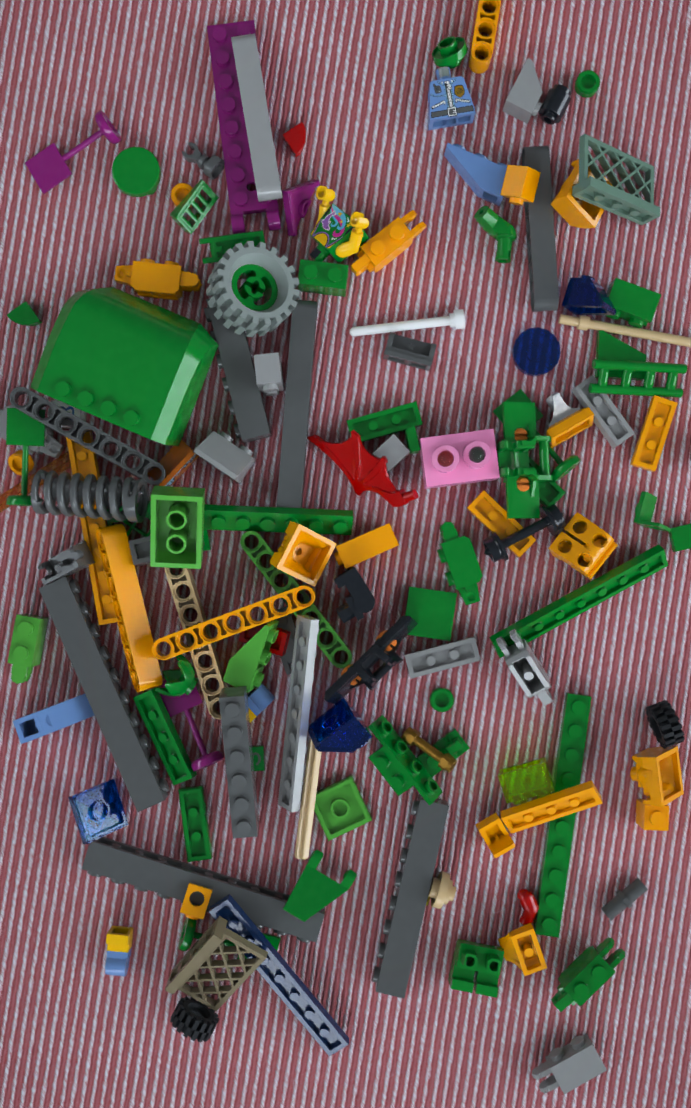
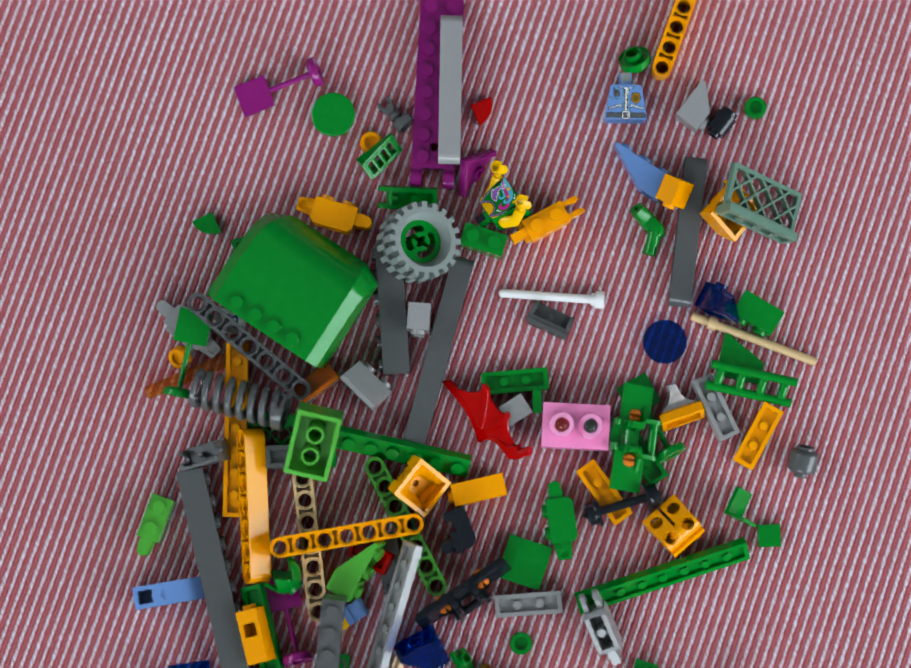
camera: 15 degrees right, 5 degrees down
(156, 745) = (255, 634): none -> light orange brick

